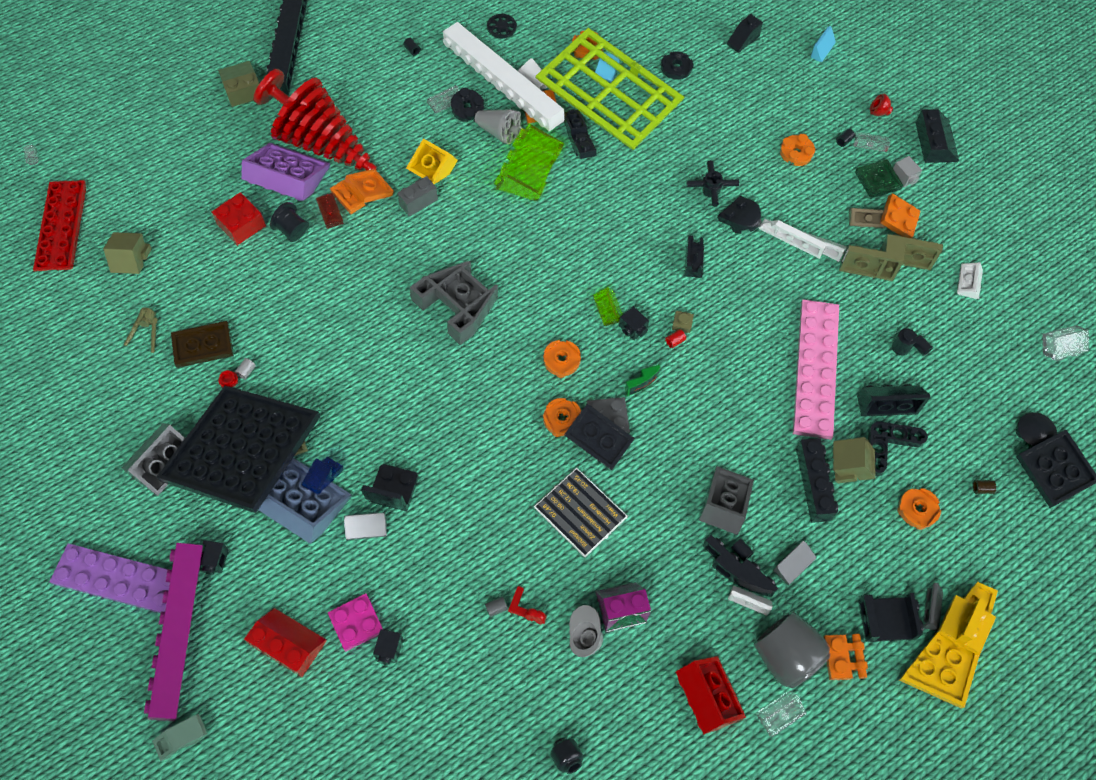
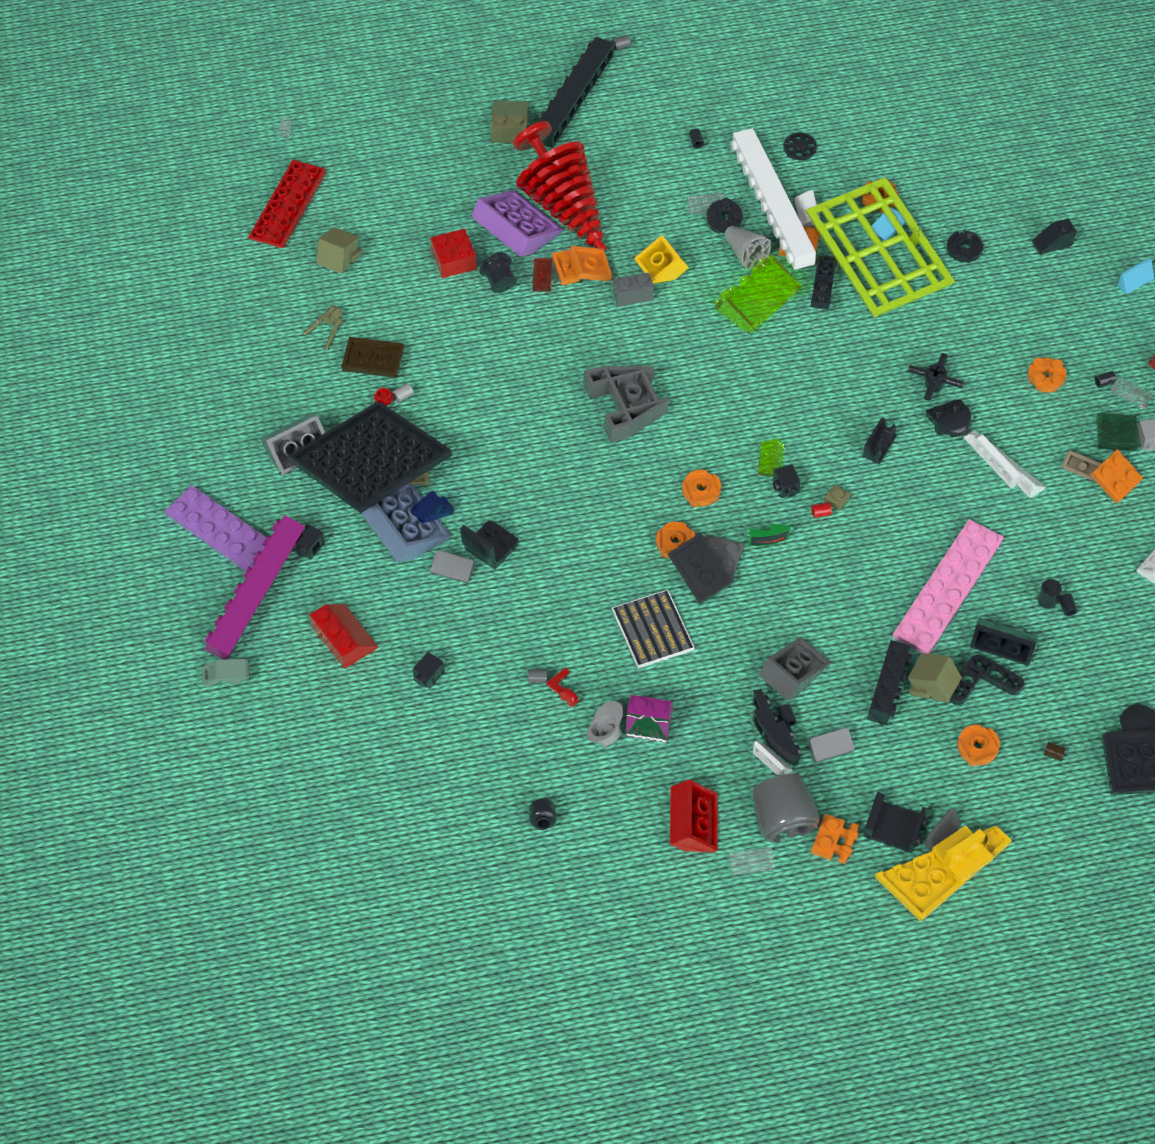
camera: 25 degrees right, 5 degrees down
(355, 622) = (408, 641): dark pink plate -> none
(892, 255) = (1082, 507): olive bracket -> none

